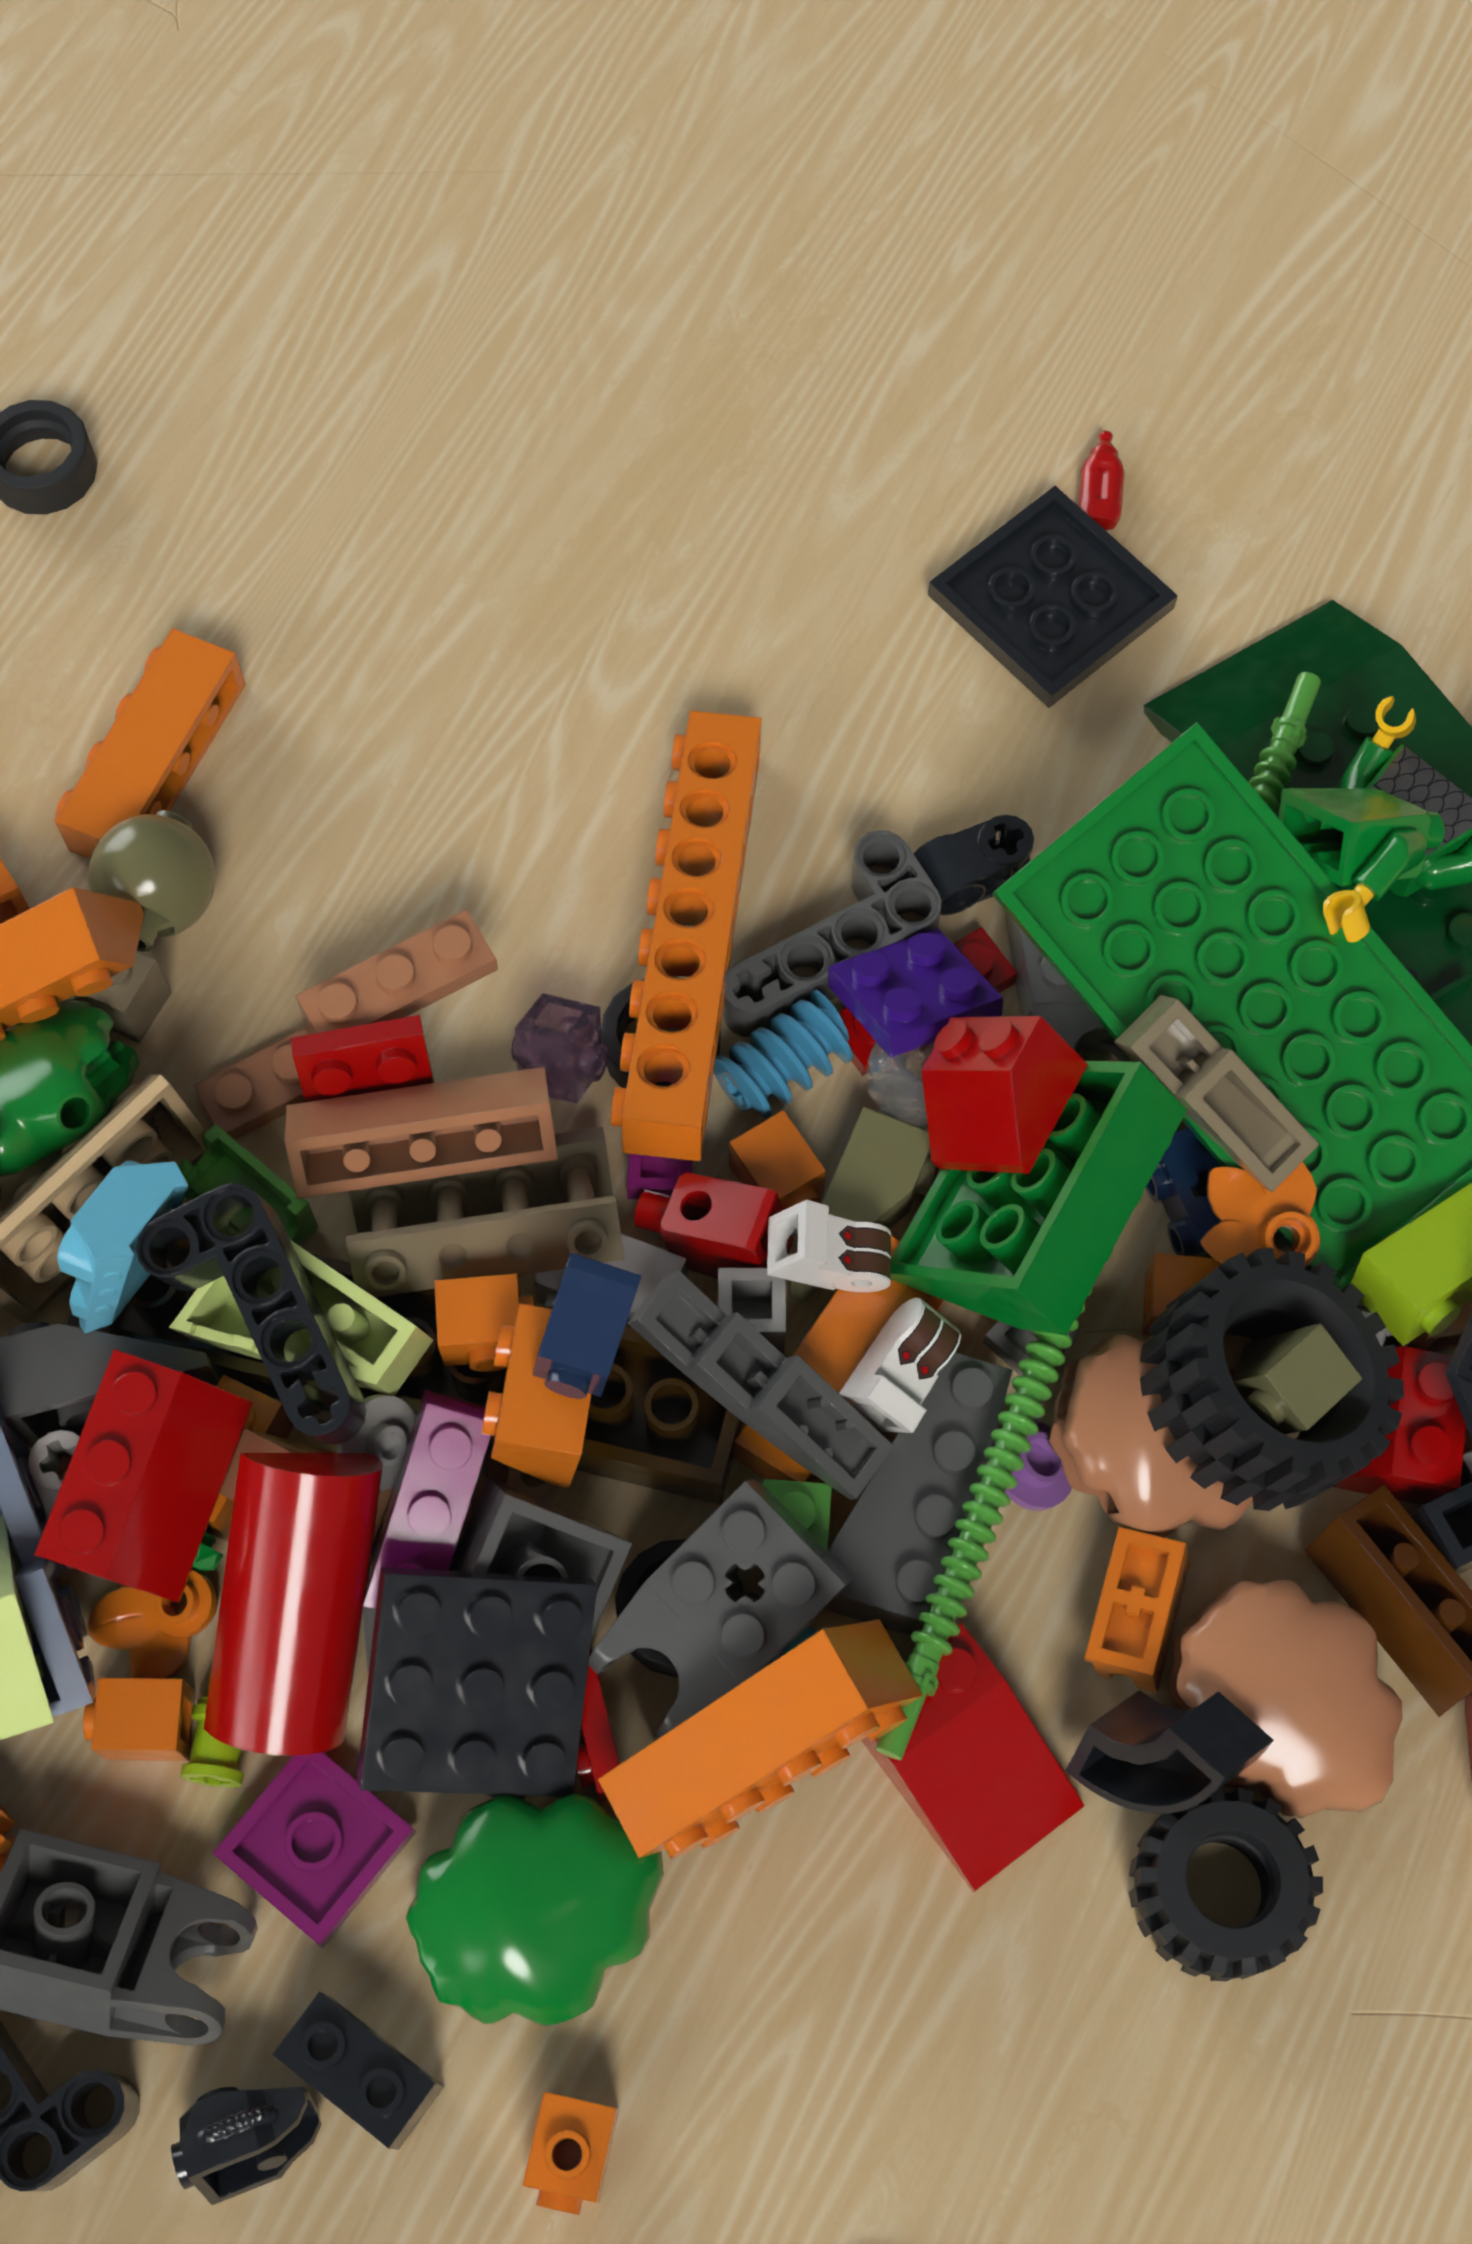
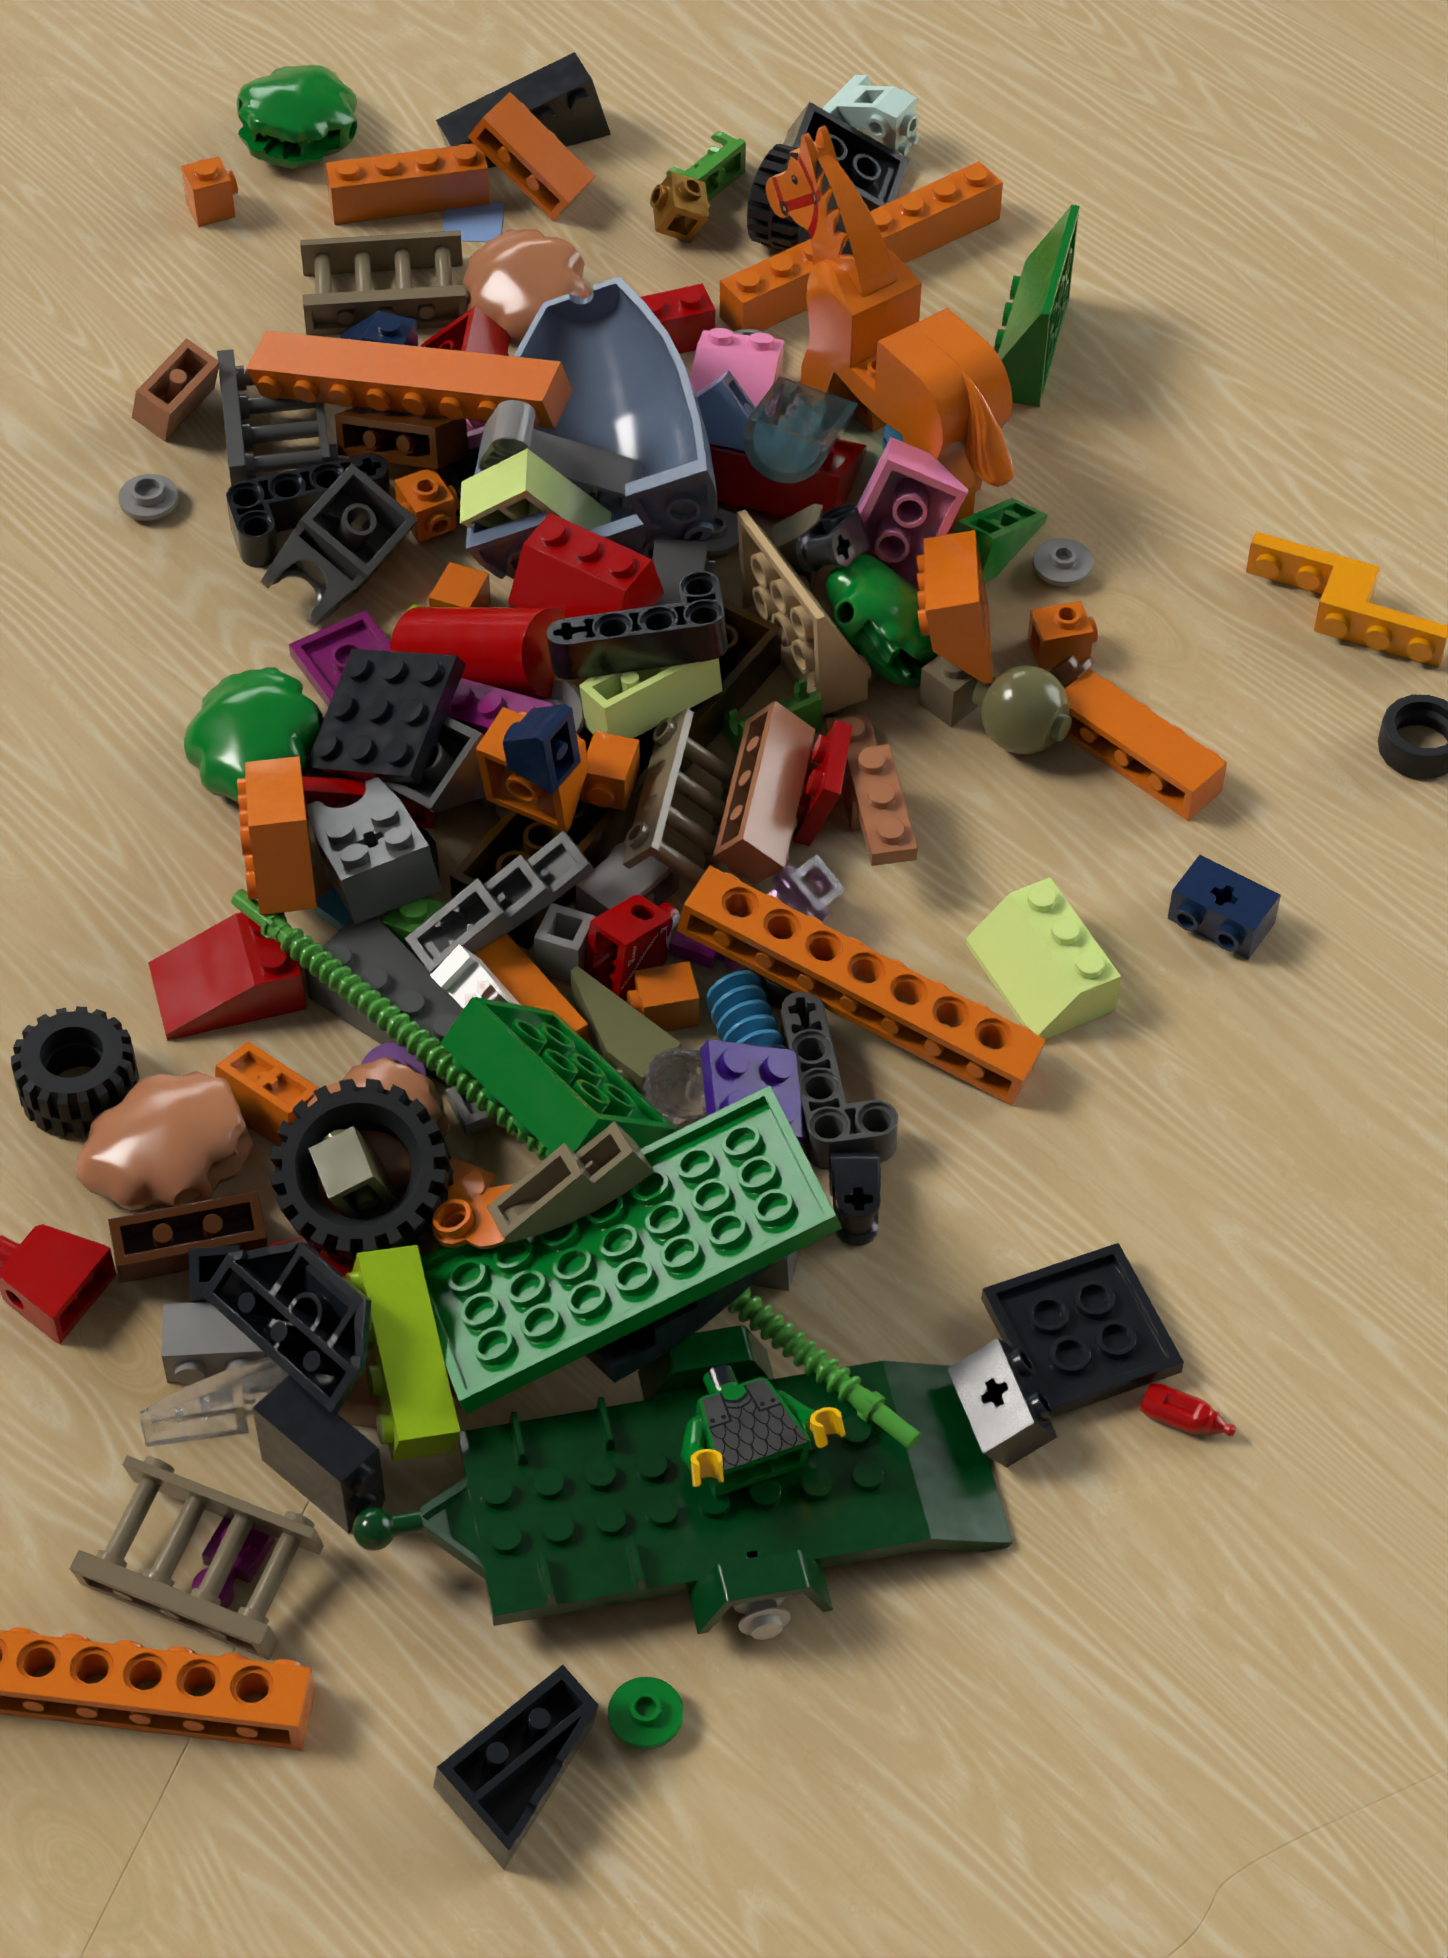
camera: 110 degrees right, 15 degrees down
(56, 854) = (1071, 669): none -> reddish brown piece
(105, 1236) = (743, 588): medium azure slope -> none
(243, 2139) = (204, 586): black hand -> none
(358, 2071) = (211, 645): black brick -> none
(393, 597) = (1223, 907): none -> dark blue brick
(549, 761) = (1045, 961): none -> yellowish green slope
(569, 2152) = (117, 726): orange brick -> none
(830, 1250) = (572, 968): white leg -> none
(996, 1091) = (640, 1079): red slope -> none
(1164, 1755) = (164, 1046): black brick -> none
(1195, 630) = (1003, 1402): none -> brick
(1360, 842) = (716, 1329): green torso -> none

